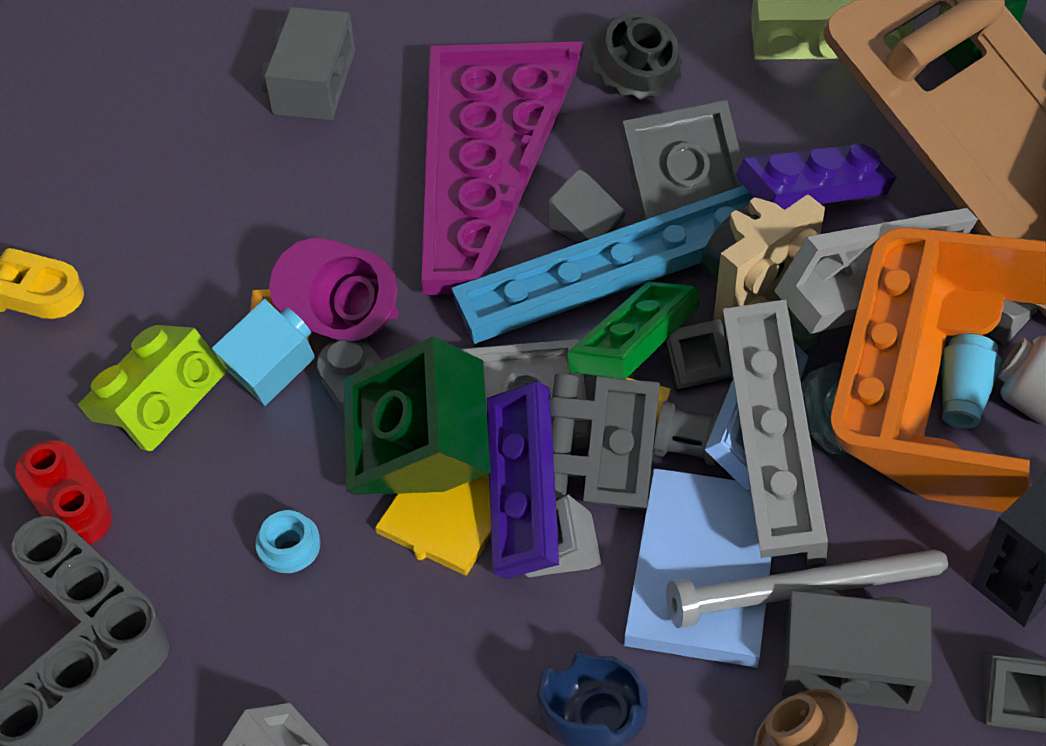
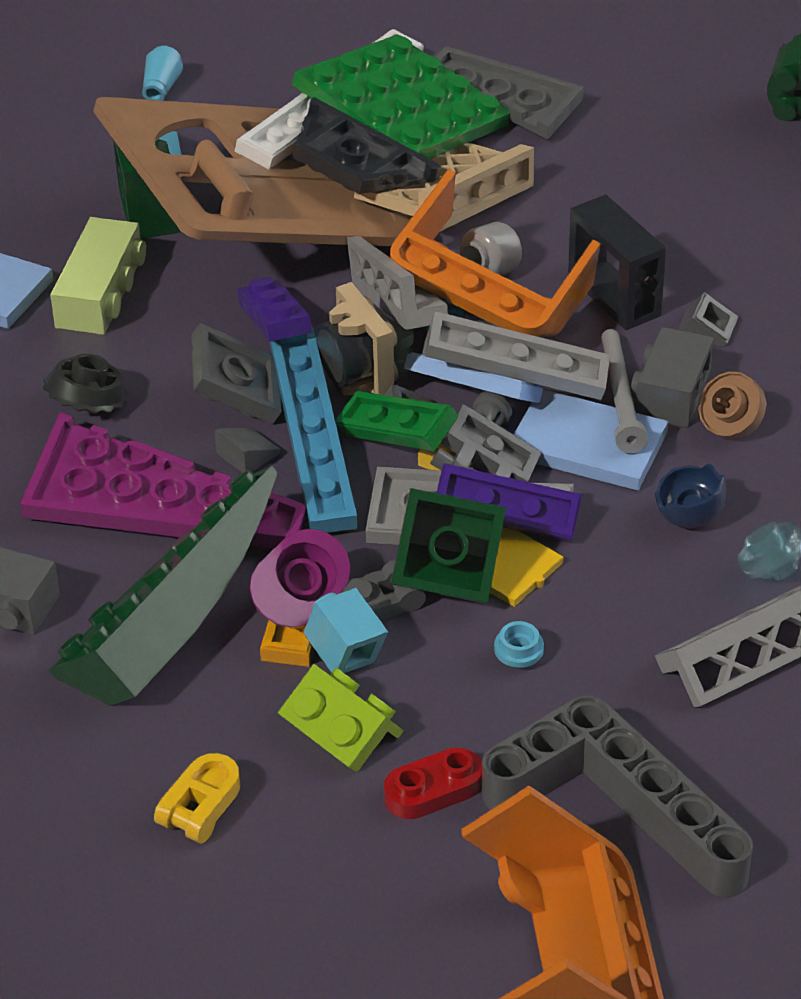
camera: 80 degrees left, 10 degrees down
(290, 187) = (169, 602): none -> wedge

